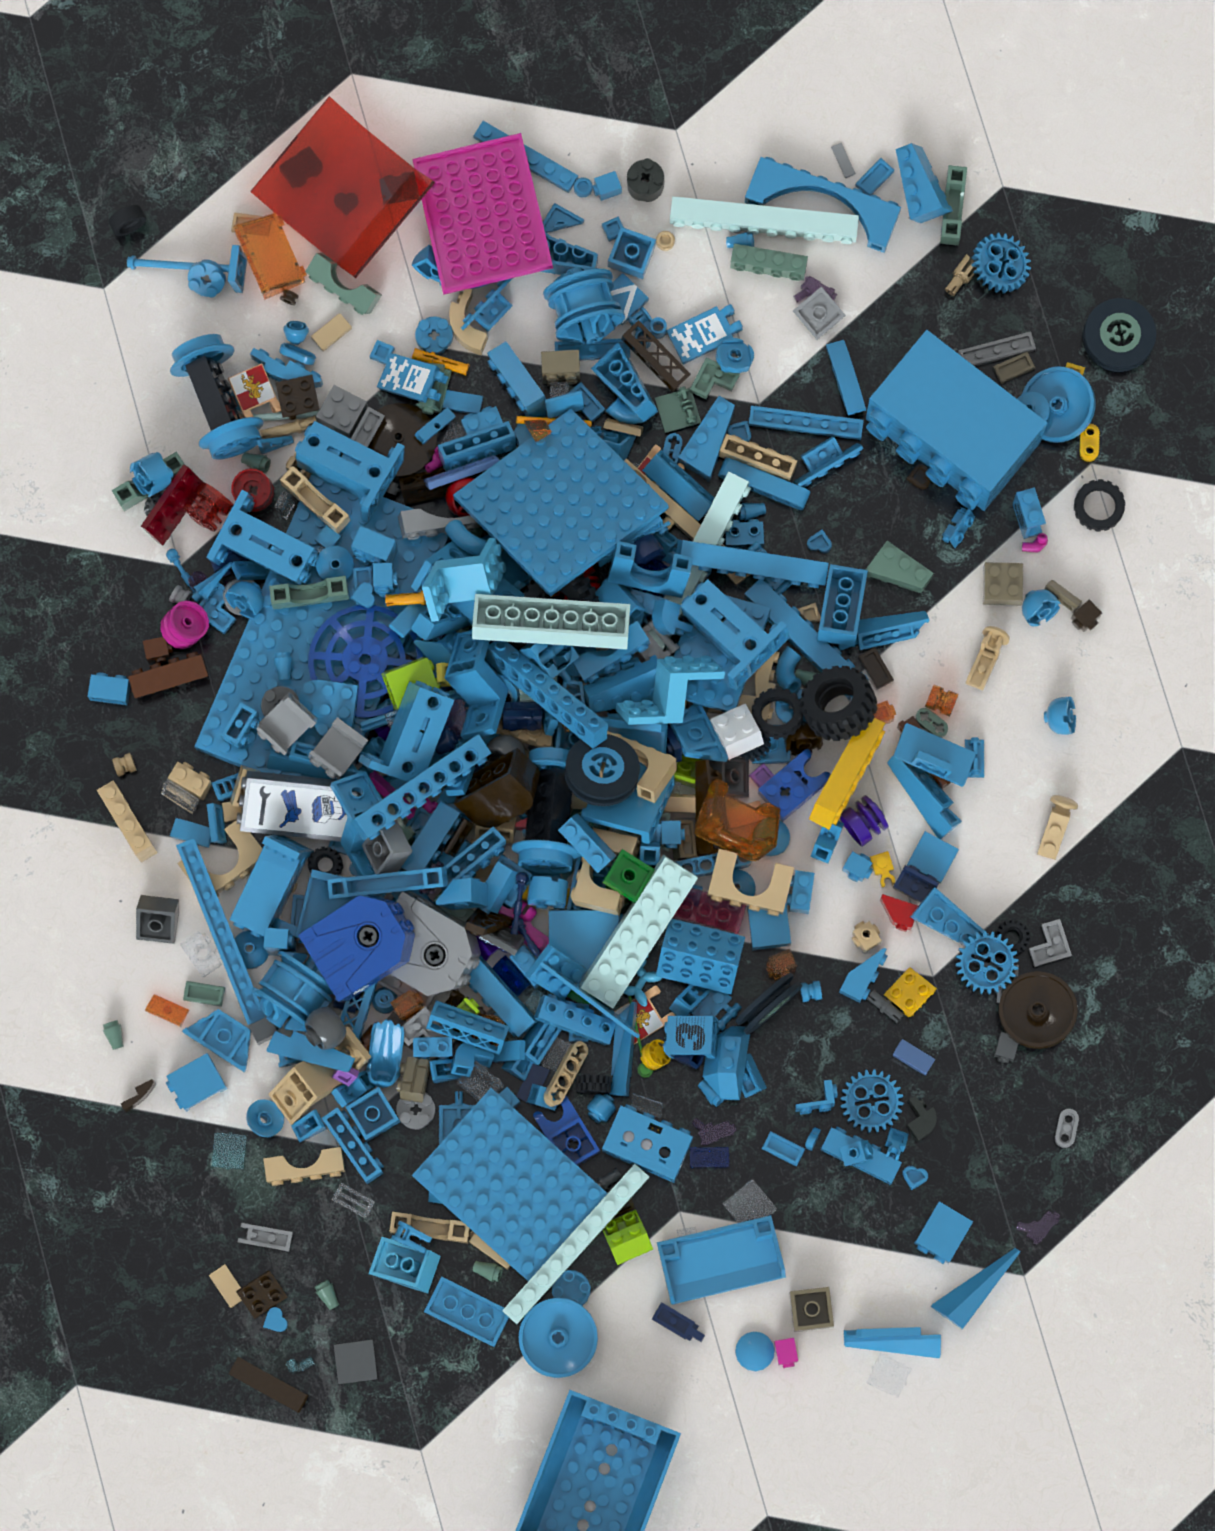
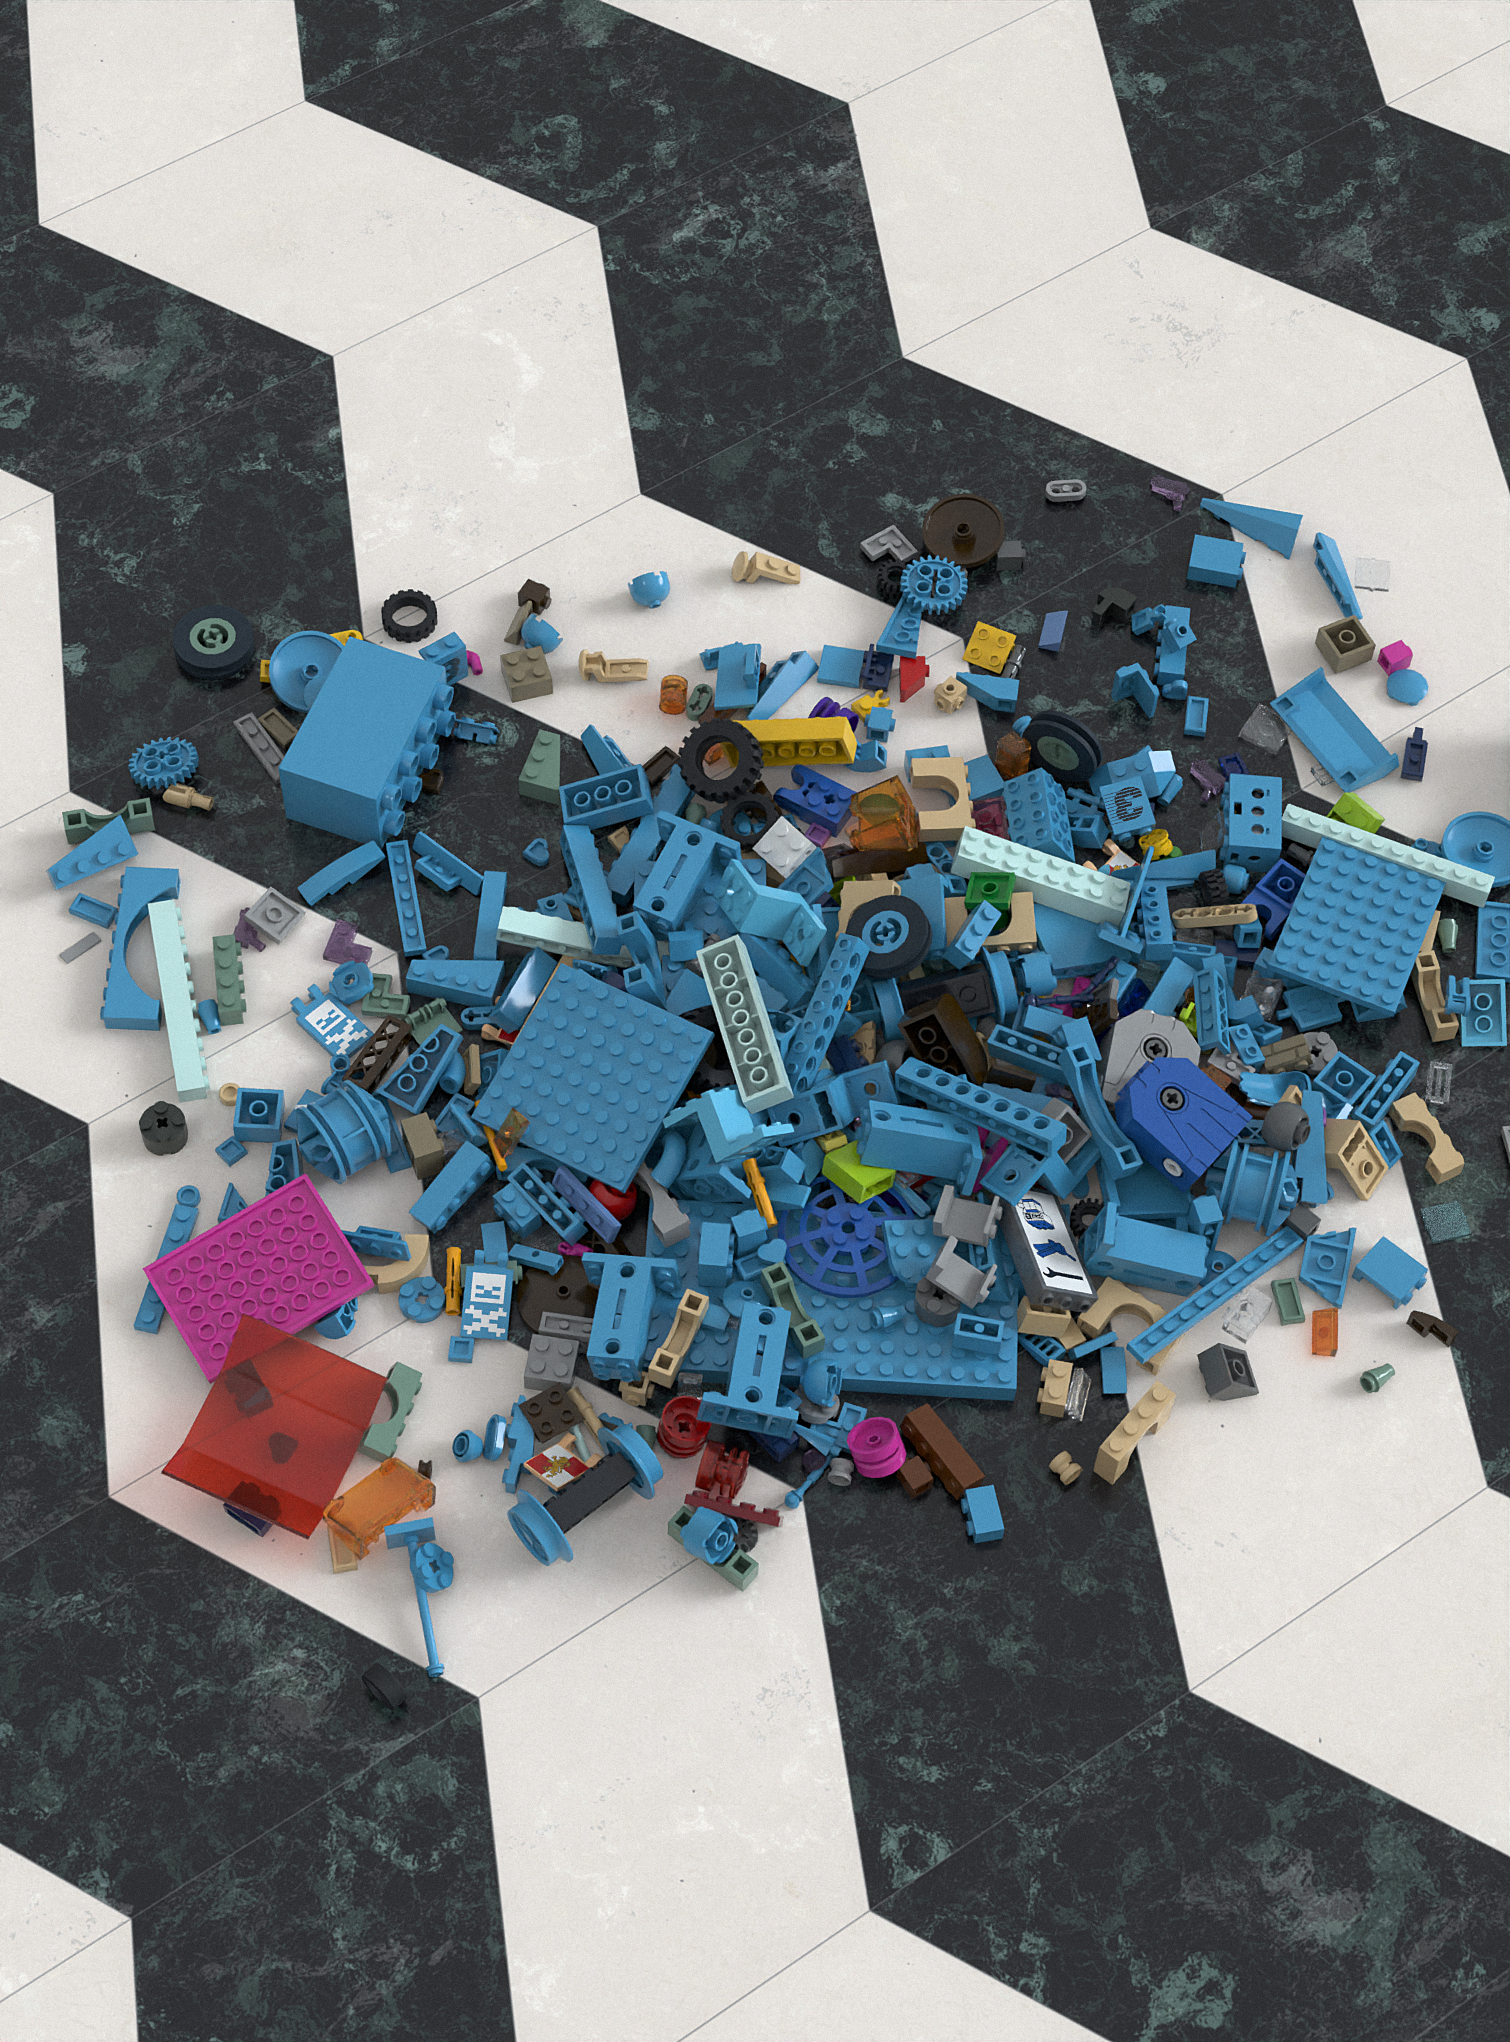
camera: 115 degrees left, 20 degrees down
(270, 1113) = (1396, 1191): dark azure dish -> none
(331, 332) = (453, 1412): tan tile -> none
(607, 186) = (180, 1167): dark azure brick -> none
(681, 533) = (590, 968): none -> dark azure wheel
(758, 457) = (464, 921): tan brick -> none
(773, 360) = (341, 946): none -> clear purple plate
(875, 1118) = (1113, 648): dark azure gear -> none
(914, 1177) = (1171, 598): dark azure tile -> none

